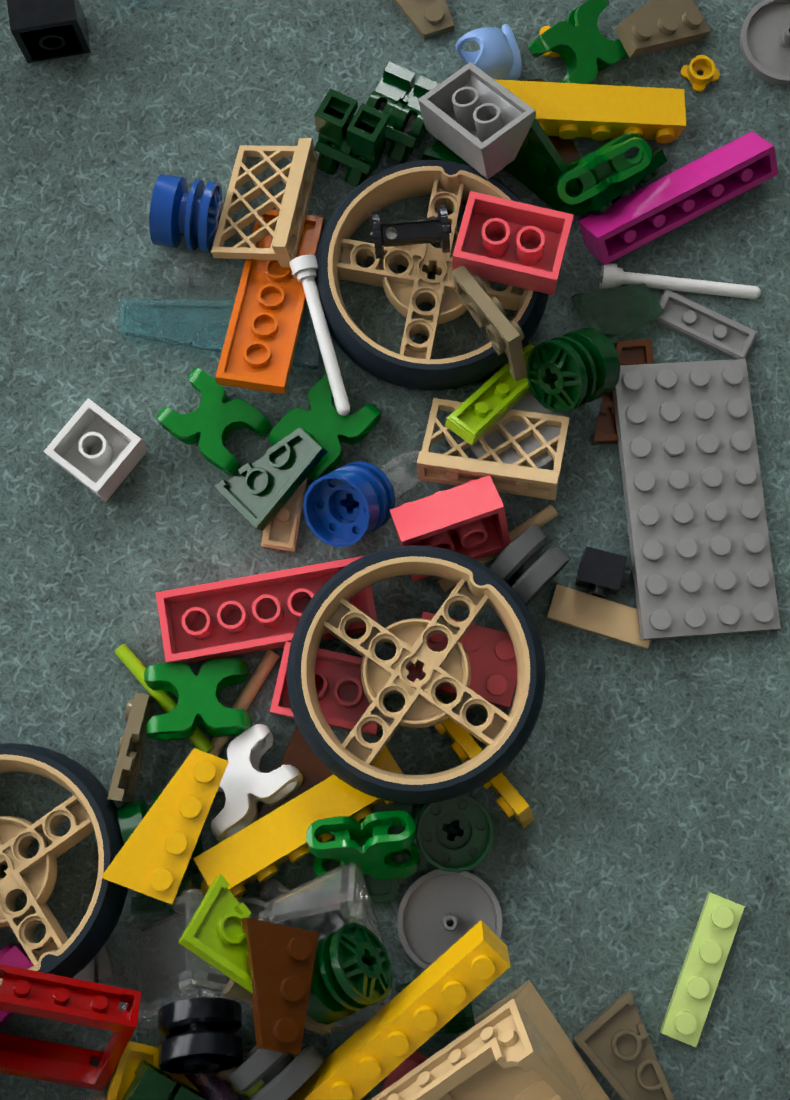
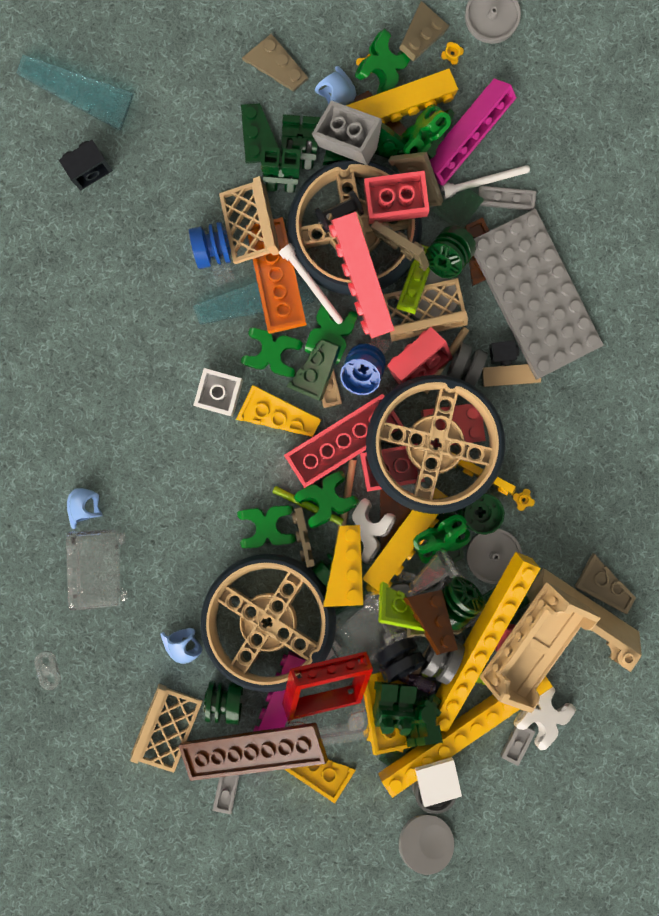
camera: 30 degrees left, 10 degrees up
(77, 705) = (266, 526): none -> green piece
(177, 521) = (272, 411): none -> yellow wing
(338, 69) = (255, 132): none -> dark green wing
(403, 338) = (362, 275): none -> coral brick
(535, 850) = (528, 500): none -> yellow plate
(579, 258) = (420, 162): none -> dark tan wing
(702, 969) = (624, 528): yellowish green plate -> none

